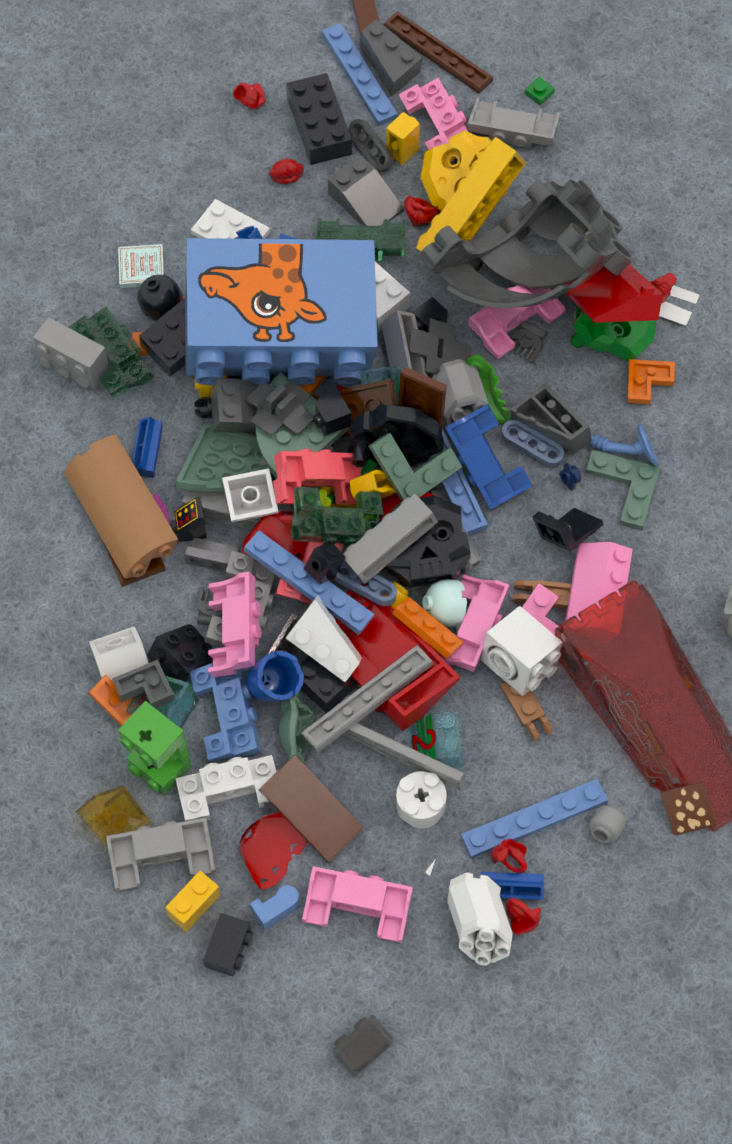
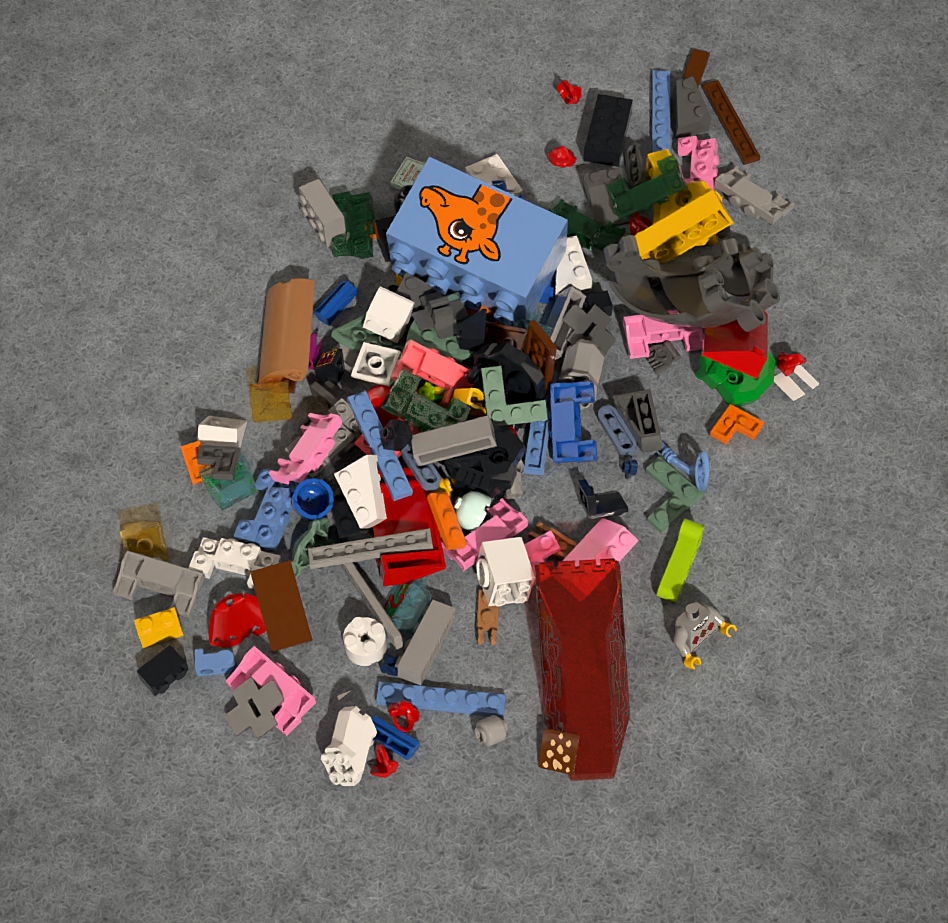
camera: 30 degrees right, 5 degrees down
(152, 591) = (270, 401): none -> clear yellow slope
(156, 744) = (194, 505): bright green plate -> none
(180, 652) = (263, 452): black bracket -> none
(225, 434) = (388, 314): none -> white slope
(349, 944) = (258, 714): none -> piece
(362, 1045) = (208, 792): clear smoke brick -> none
(416, 168) = (653, 191): none -> clear green bracket
(459, 816) = (386, 668): none -> dark blue plate
(485, 767) = (426, 642): none -> light grey brick
(490, 382) = (612, 365): bright green plant -> none
(539, 90) = (790, 182): green plate -> none
(682, 547) = (681, 560): none -> lime beam

